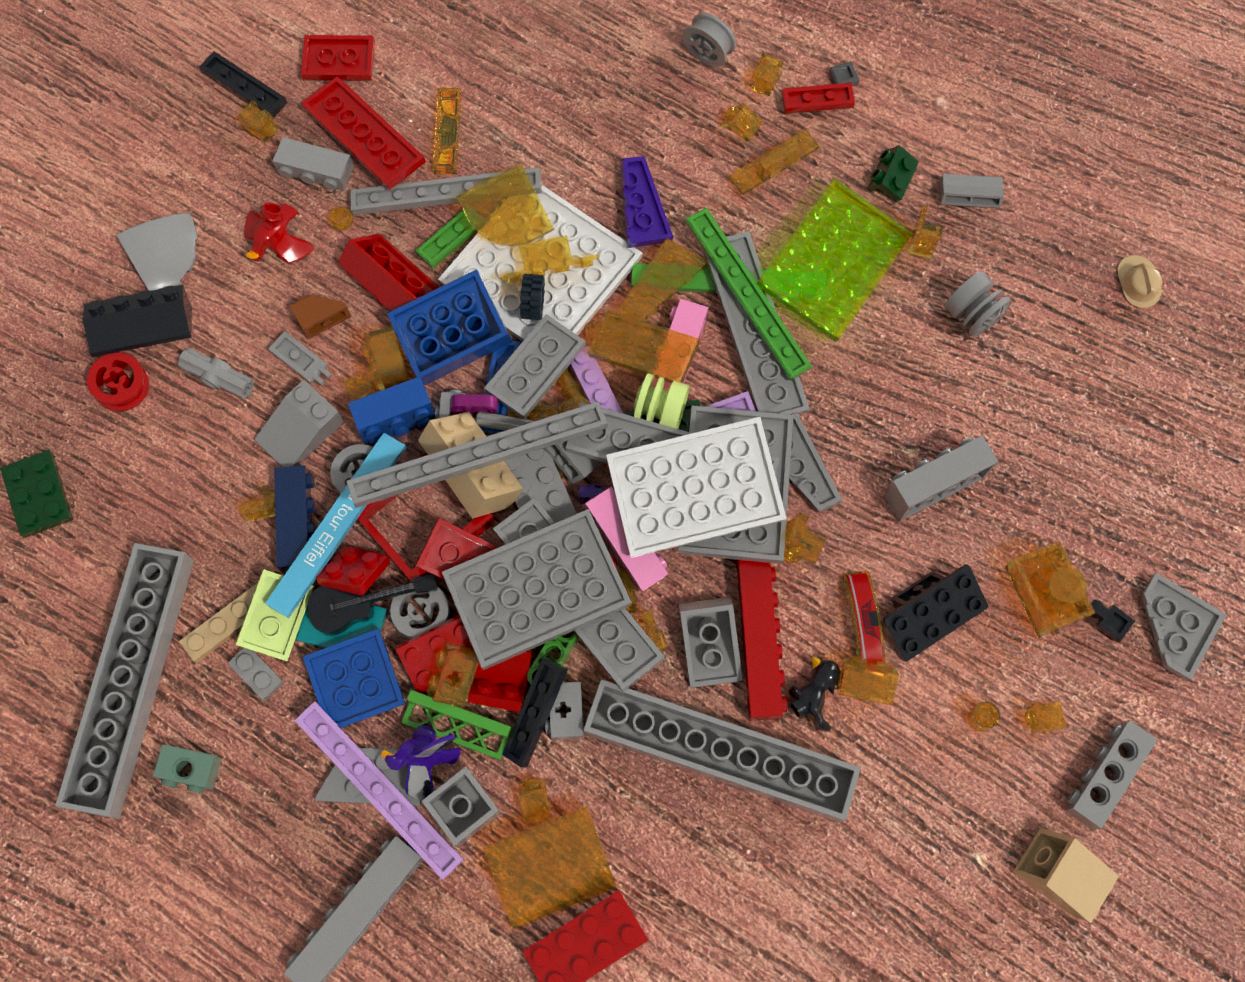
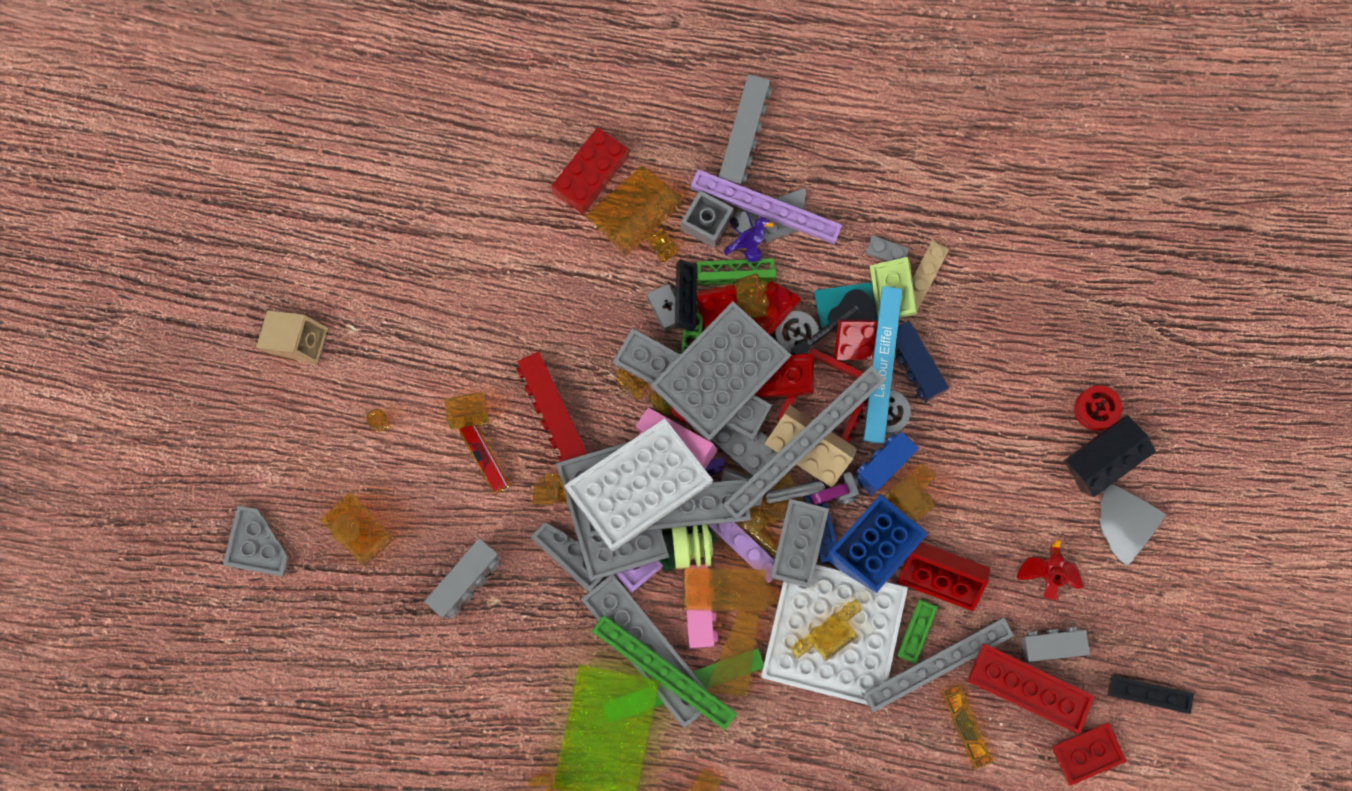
camera: 155 degrees right, 5 degrees up
(36, 493) = (1106, 308): dark green plate -> none
(125, 682) = (968, 210): light grey brick -> none
(173, 759) = (888, 180): sand green brick -> none
(216, 373) = (1032, 444): light grey piece -> none
(257, 122) = (1118, 664): clear yellow brick -> none
(259, 509) = (948, 358): clear yellow bracket -> none
(298, 426) = (950, 430): light grey slope -> none
(299, 359) = (977, 481): light grey hinge -> none
(319, 314) = (984, 520): dark orange slope -> none
(341, 218) = (1009, 610): clear yellow plate -> none
(354, 679) = (817, 271): blue plate -> none
(506, 209) = (881, 662): clear yellow plate -> none
(532, 296) = (826, 594): black bush -> none
(643, 210) = (777, 718): dark purple wing -> none
(710, 642) = (587, 396): light grey slope -> none
(722, 751) = (548, 322): light grey brick -> none
(810, 697) = (502, 384): black animal -> none
(933, 610) = (438, 482): black bracket -> none
(981, 307) = (479, 739): light grey wheel -> none
(1045, 717) = (334, 438): clear yellow bracket -> none
(1112, 620) = (305, 527): black plate -> none
(1138, 746) = (281, 386): light grey brick -> none

